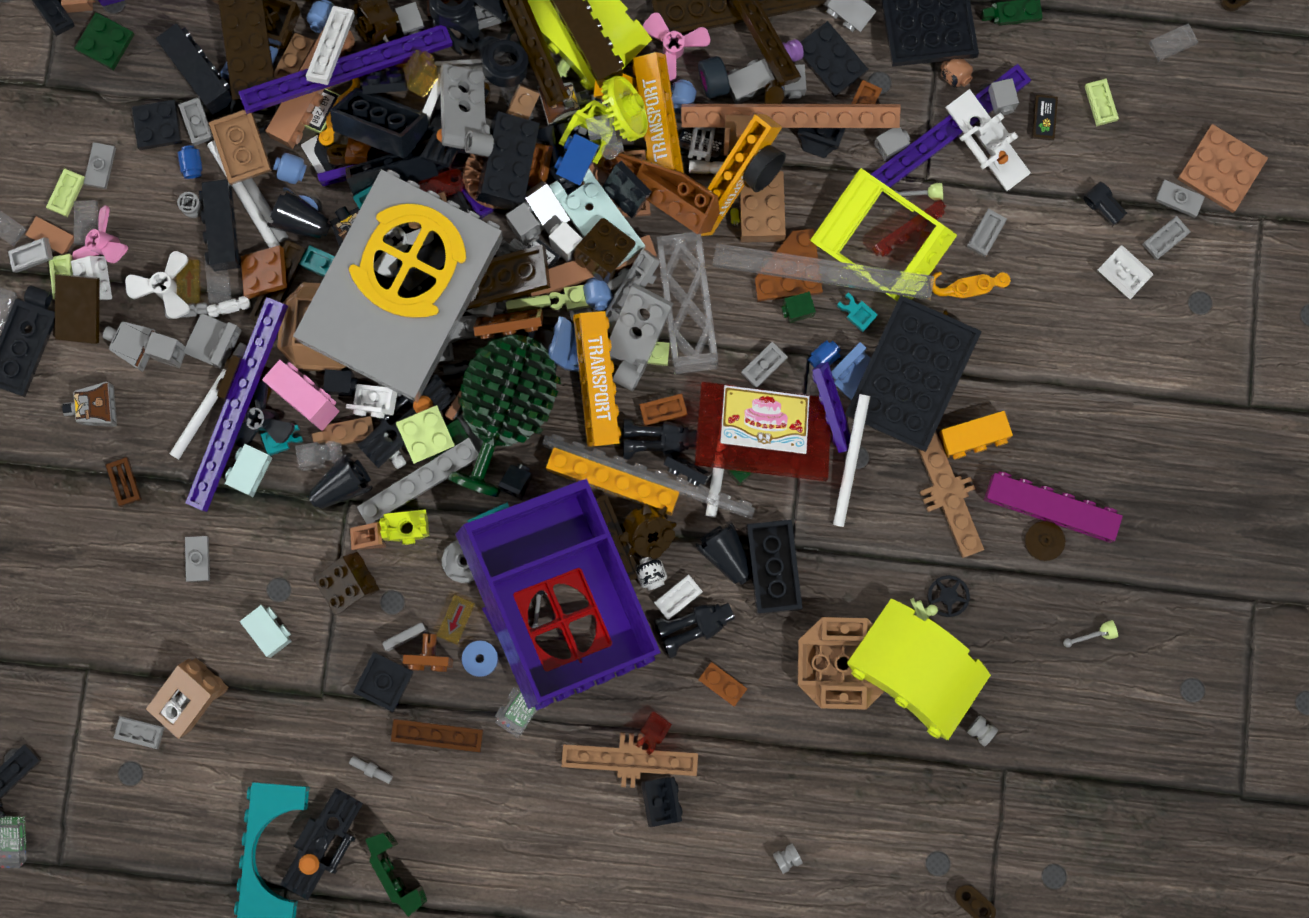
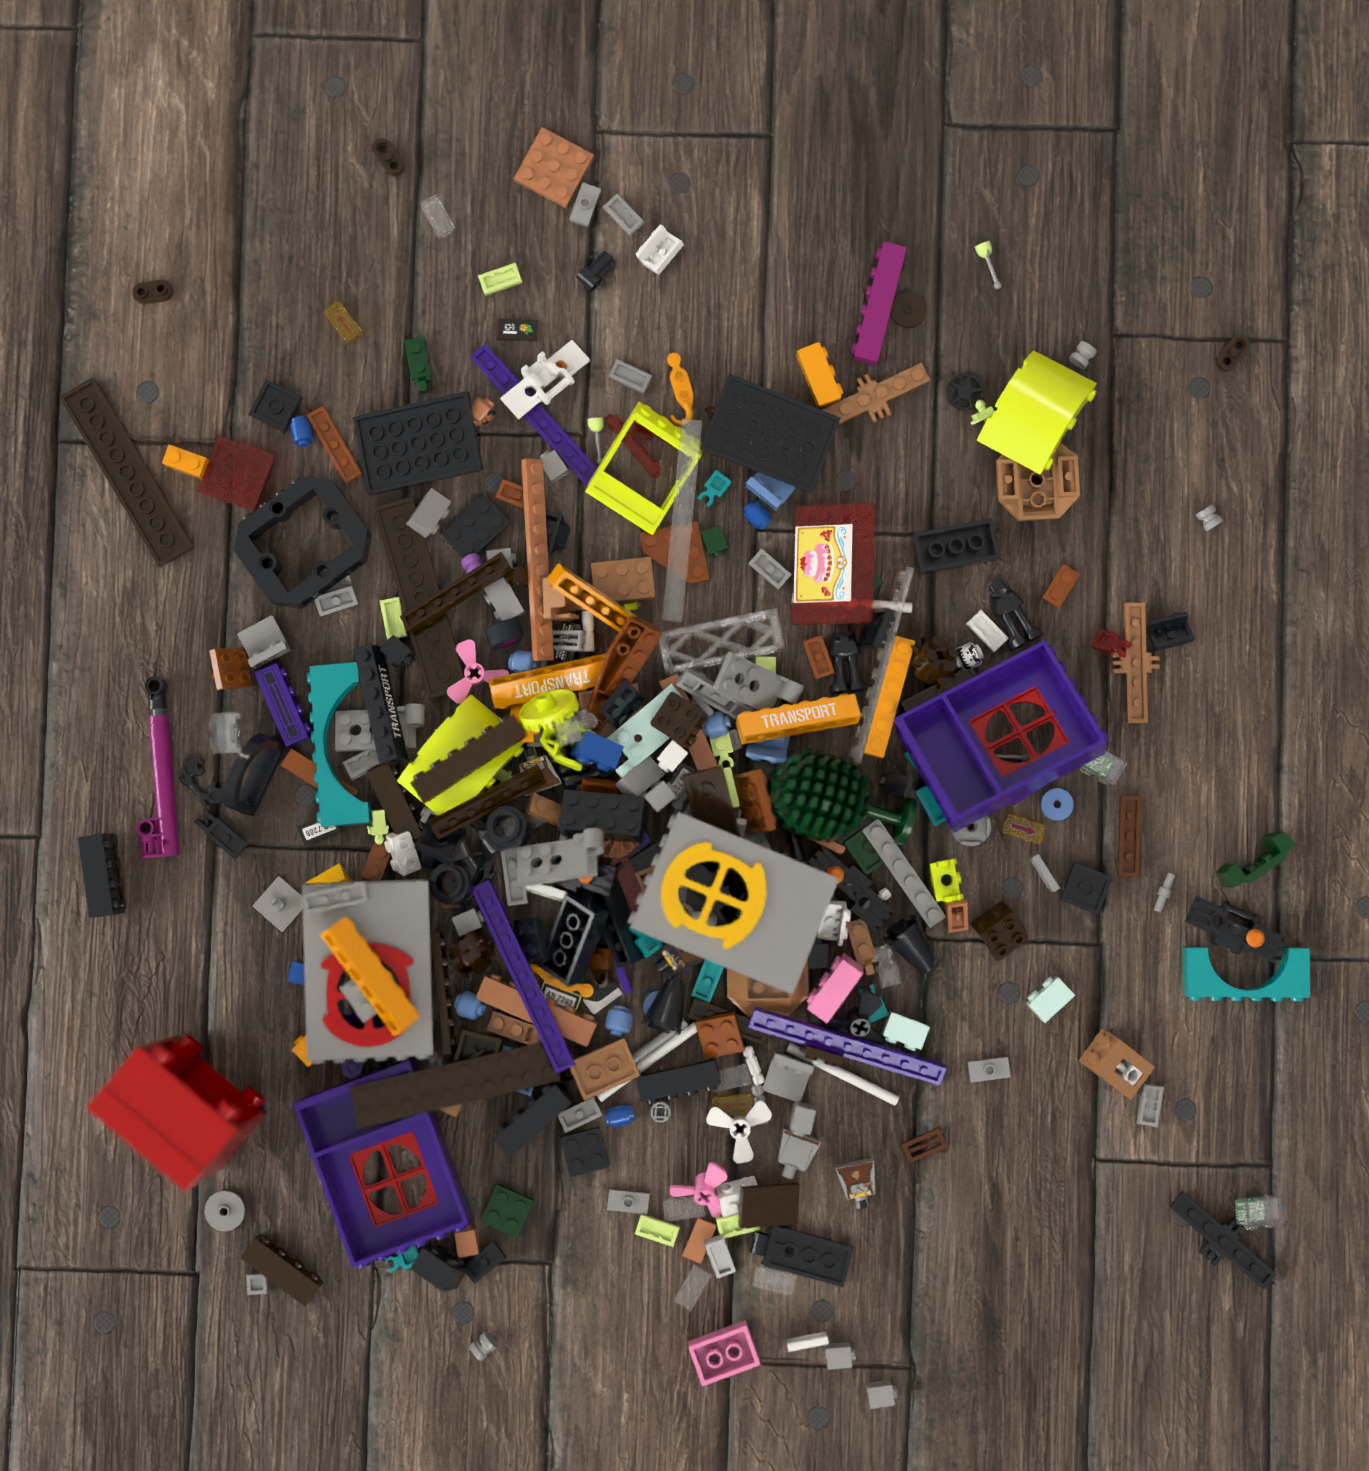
camera: 90 degrees left, 5 degrees up
(330, 45) = (503, 992): white plate -> none
(421, 73) = (523, 905): clear yellow brick -> none
(425, 434) = (861, 870): yellowish green plate -> none
(428, 657) = (1064, 849): dark orange plate -> none
(726, 553) = (944, 591): black cone -> none
(764, 168) = (595, 578): black tyre -> none
(834, 411) = (806, 503): dark purple plate -> none
(851, 460) = (852, 484): white piece -> none
(1003, 96) = (505, 366): light grey brick -> none

